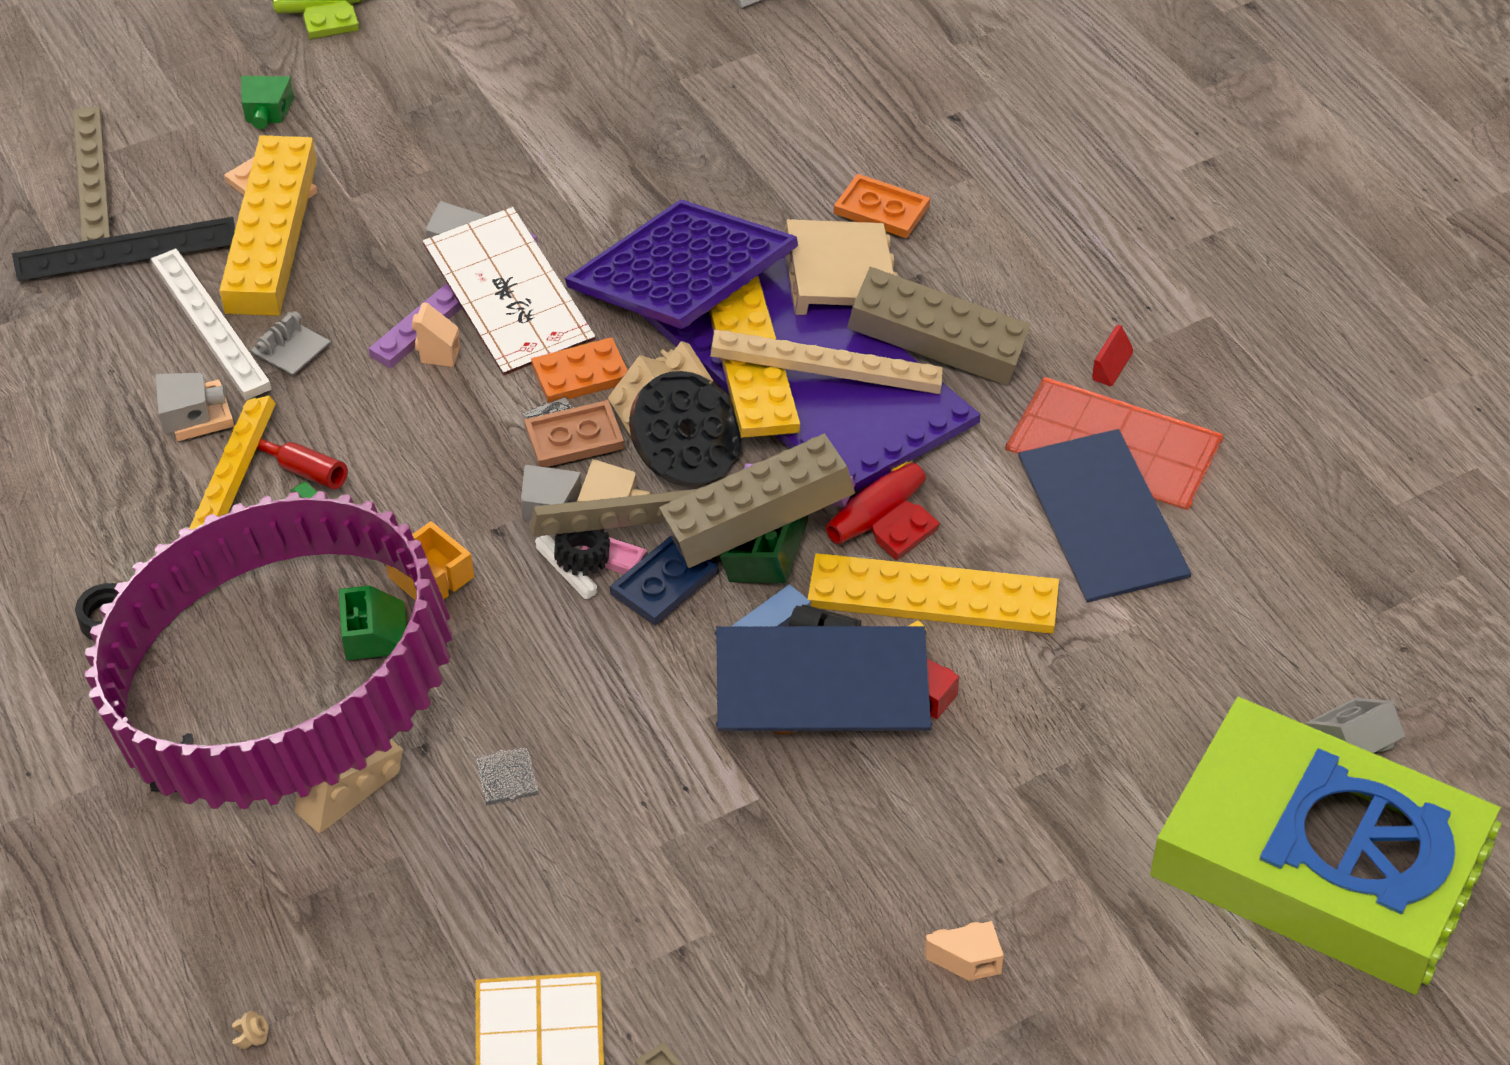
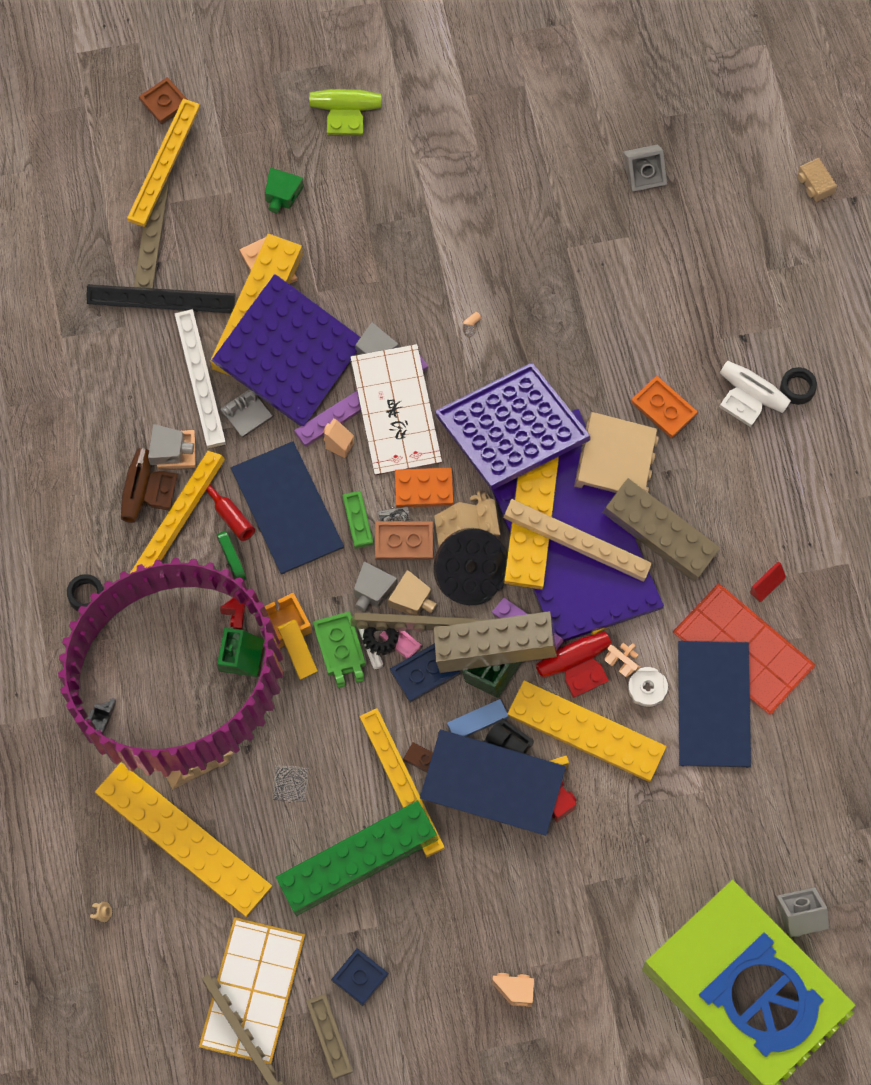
camera: 15 degrees right, 20 degrees up
(70, 48) = (162, 100): none -> dark orange plate
(87, 103) = (163, 163): none -> yellow plate
(155, 462) = (147, 487): none -> reddish brown plate
(328, 256) = (287, 350): none -> dark purple plate
(343, 573) = (232, 608): none -> red slope
(359, 895) = (183, 840): none -> yellow plate
(387, 441) = (287, 507): none -> dark blue piece
(462, 592) = (297, 649): none -> yellow tile
(497, 429) = (357, 519): none -> bright green tile
(525, 584) = (340, 647): none -> bright green tile
(577, 181) = (468, 324): none -> arm
(646, 837) = (357, 858): none -> green brick
(683, 727) = (395, 768): none -> yellow plate
(695, 689) = (418, 757): none -> reddish brown plate
(711, 1005) = (359, 977): none -> dark blue plate
(950, 486) = (629, 665): none -> light nougat hips
(992, 165) = (750, 394): none -> white plate
(999, 530) = (655, 679): none -> white plate
(1048, 156) = (800, 373): none -> black tyre

